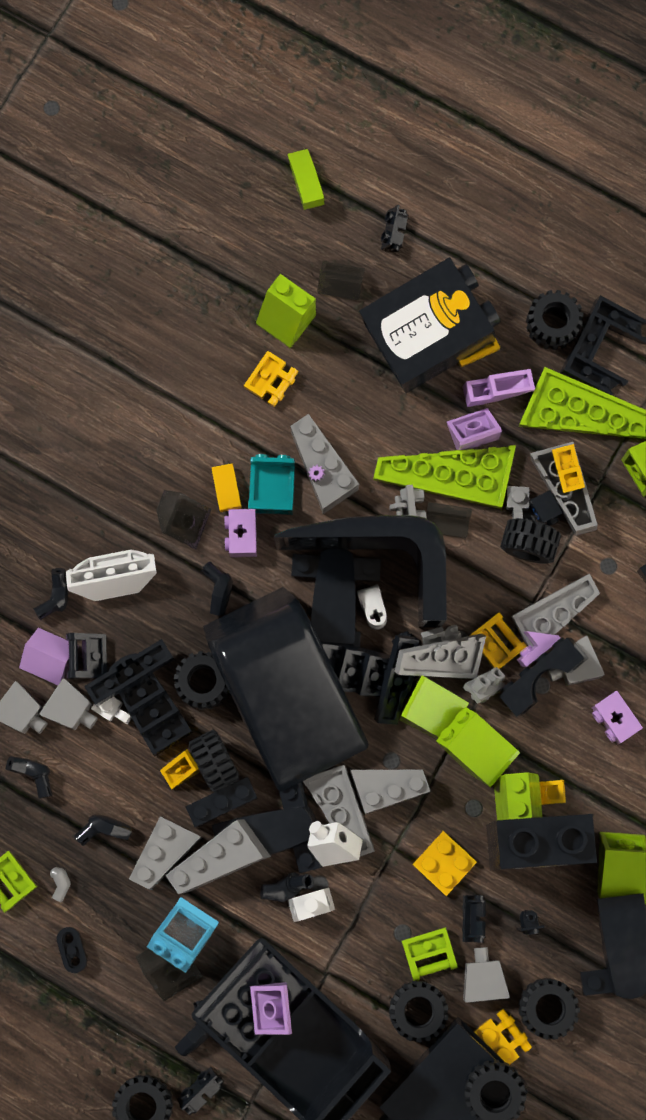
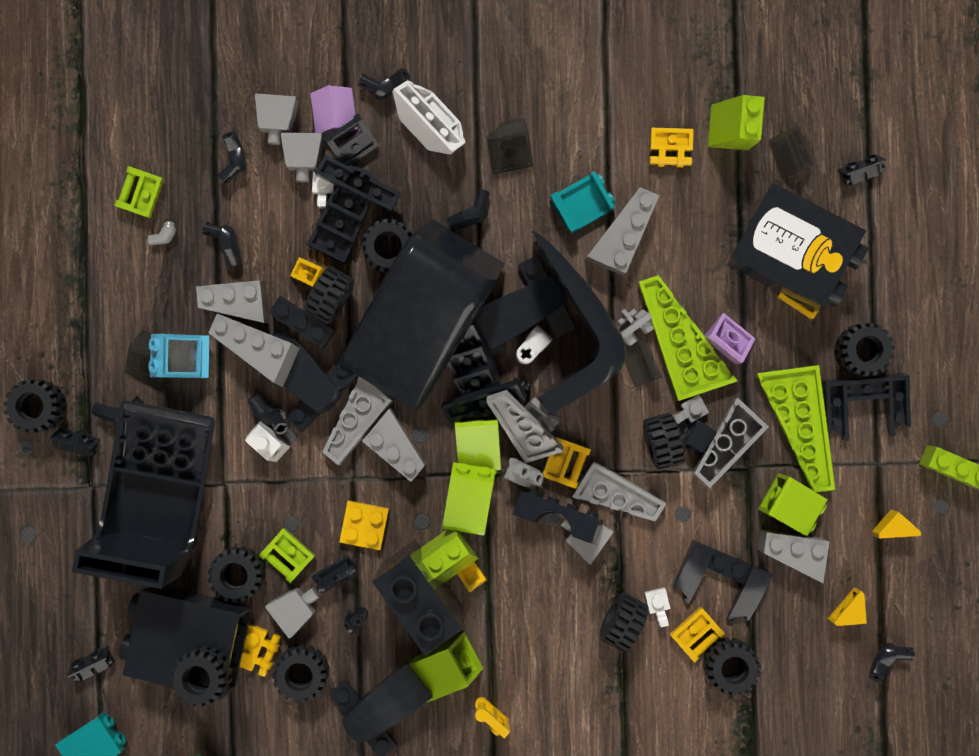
camera: 55 degrees right, 10 degrees up
(71, 950) = (117, 274): black plate -> none
(226, 487) = (558, 167): yellow slope -> none
(247, 544) = (522, 213): lavender brick -> none
(271, 1009) = (164, 461): lavender slope -> none
(306, 179) = (861, 69): lime slope -> none
(319, 476) = (610, 229): lavender piece -> none
(333, 843) = (320, 425): white torso -> none
(498, 387) = (778, 337): lavender slope -> none
(541, 643) = (583, 500): lavender slope -> none
(568, 468) = (743, 436): yellow slope -> none
(626, 725) = (561, 605): lavender brick -> none

